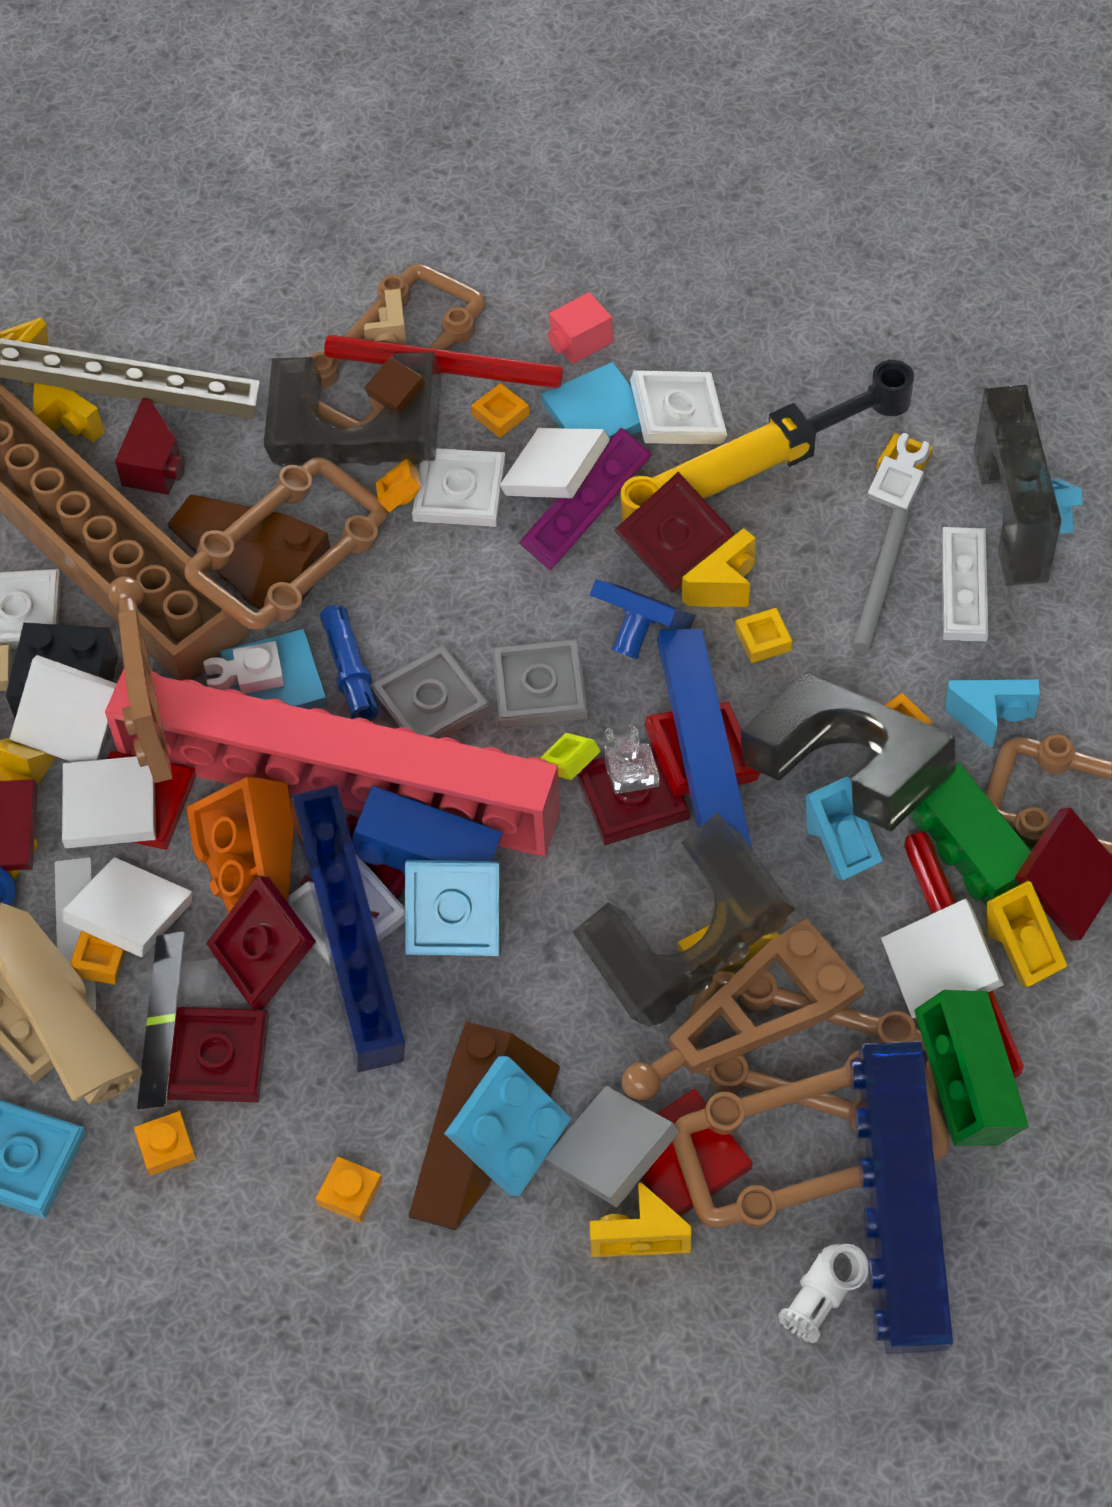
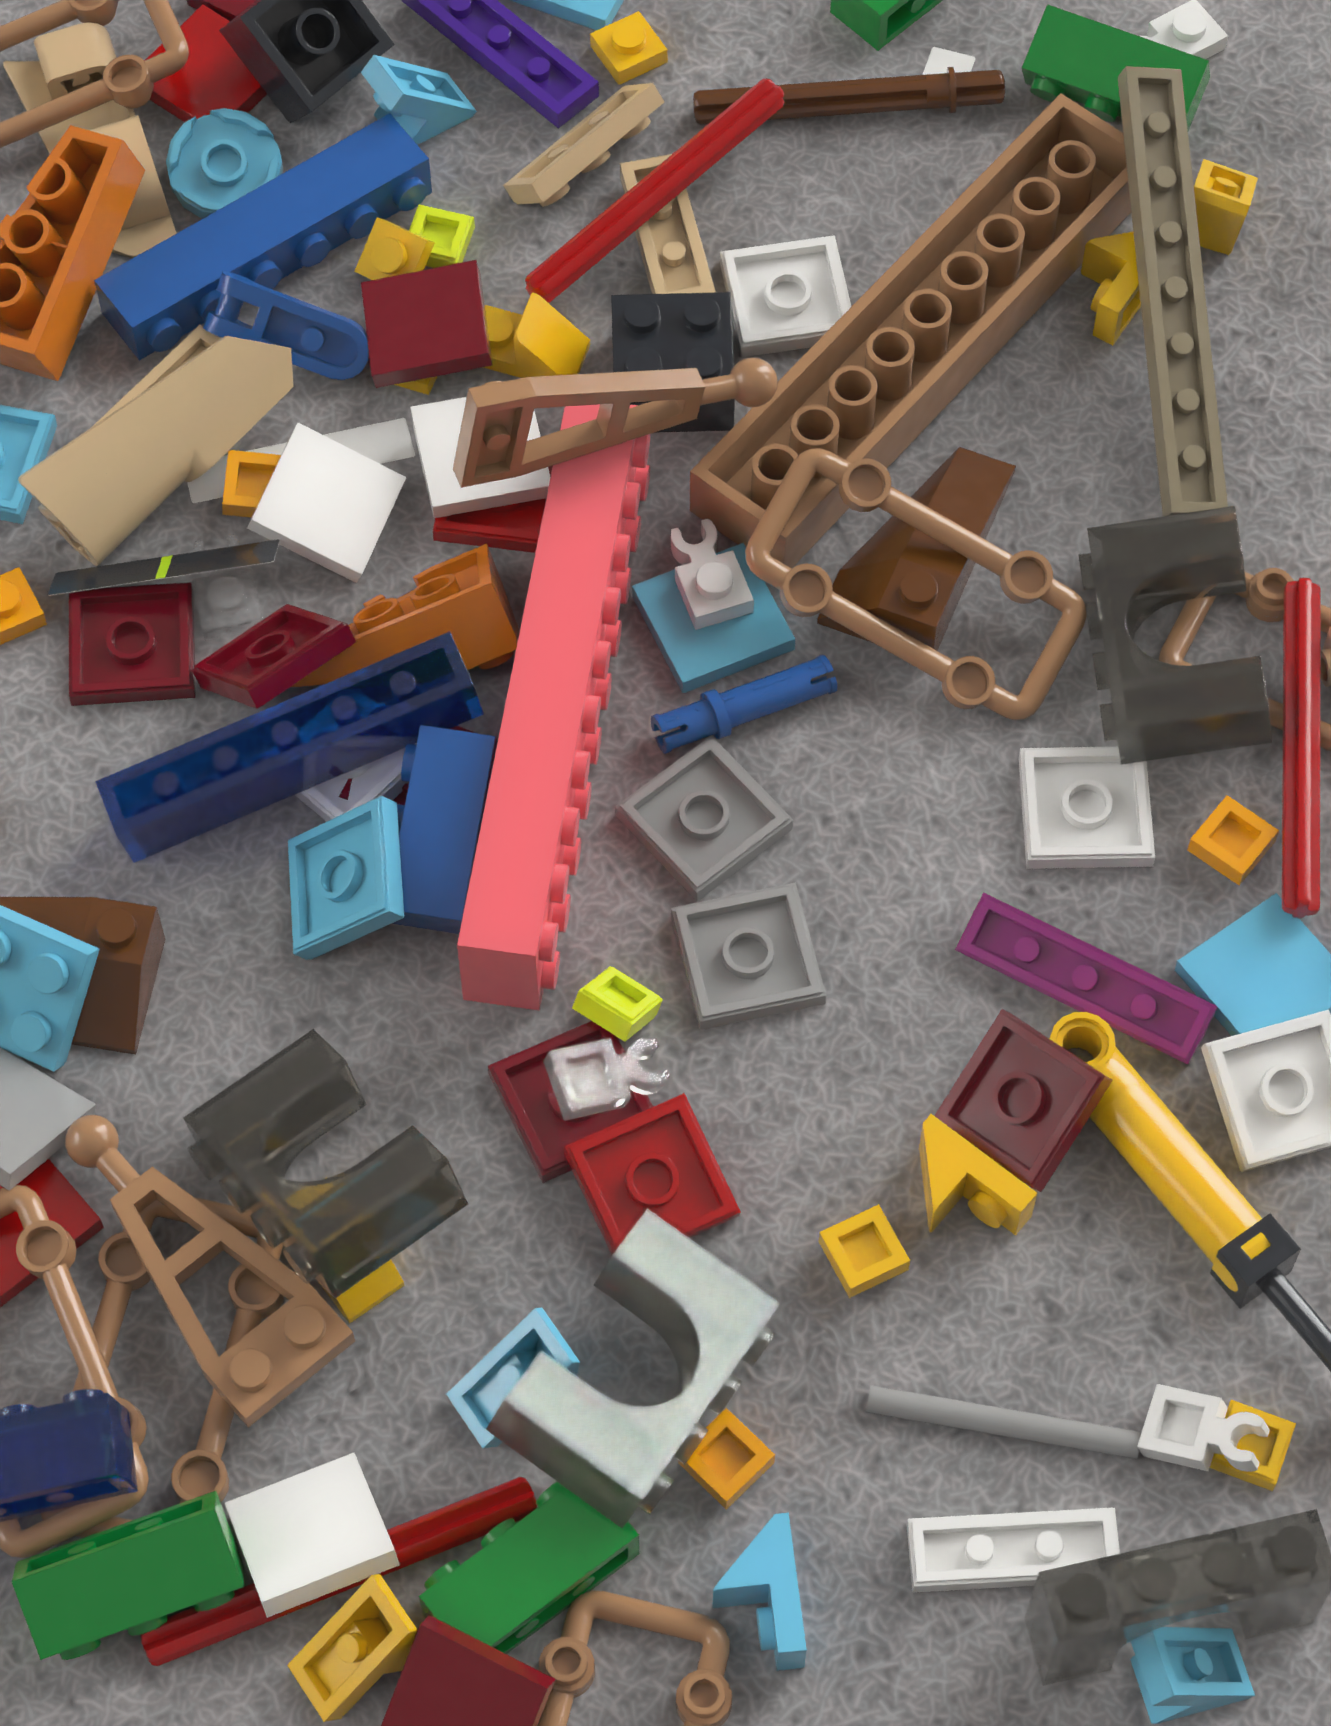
camera: 80 degrees right, 5 degrees up
(63, 711) = (596, 342): white tile -> none
(149, 453) = (1074, 397): dark red slope -> none
(395, 386) = (1196, 665): reddish brown tile -> none
(398, 485) = (1058, 719): light orange plate -> none
(554, 462) = (1134, 922): white tile -> none
(639, 612) = (870, 1064): blue tile -> none
(700, 728) = (647, 1171): blue tile -> none

